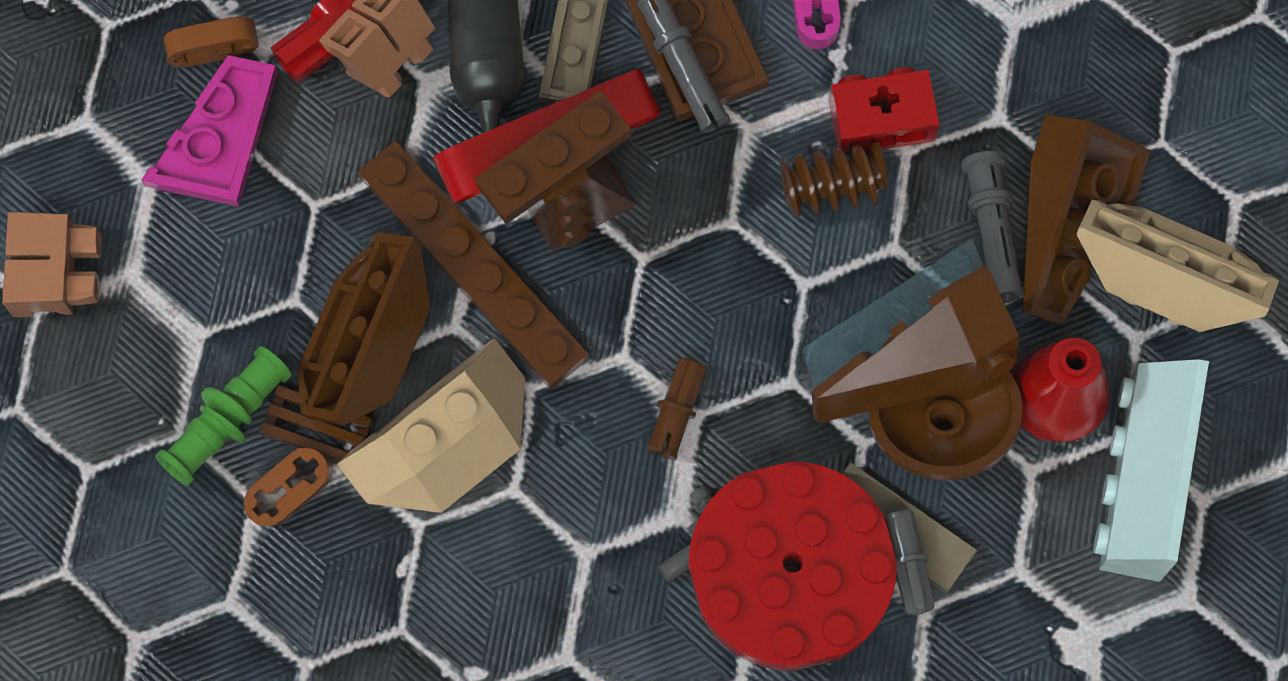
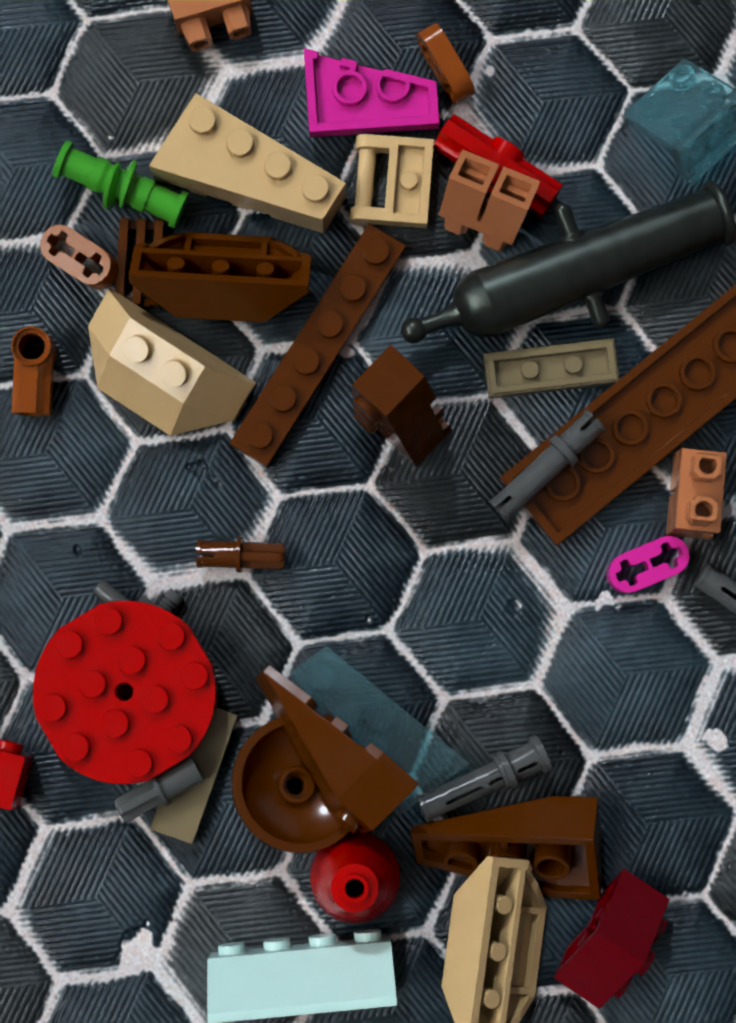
camera: 70 degrees right, 10 degrees up
(253, 276) = (238, 164): none -> tan wedge
(324, 119) = (406, 181): none -> tan plate
(408, 575) = (33, 378): none -> dark orange piece
(470, 158) = (450, 378): red beam -> none
(553, 157) = (393, 378): reddish brown plate -> none
(834, 179) = (482, 628): reddish brown piece -> none
(902, 92) = (558, 678): red brick -> none
(1200, 141) = (615, 940): none -> dark red brick

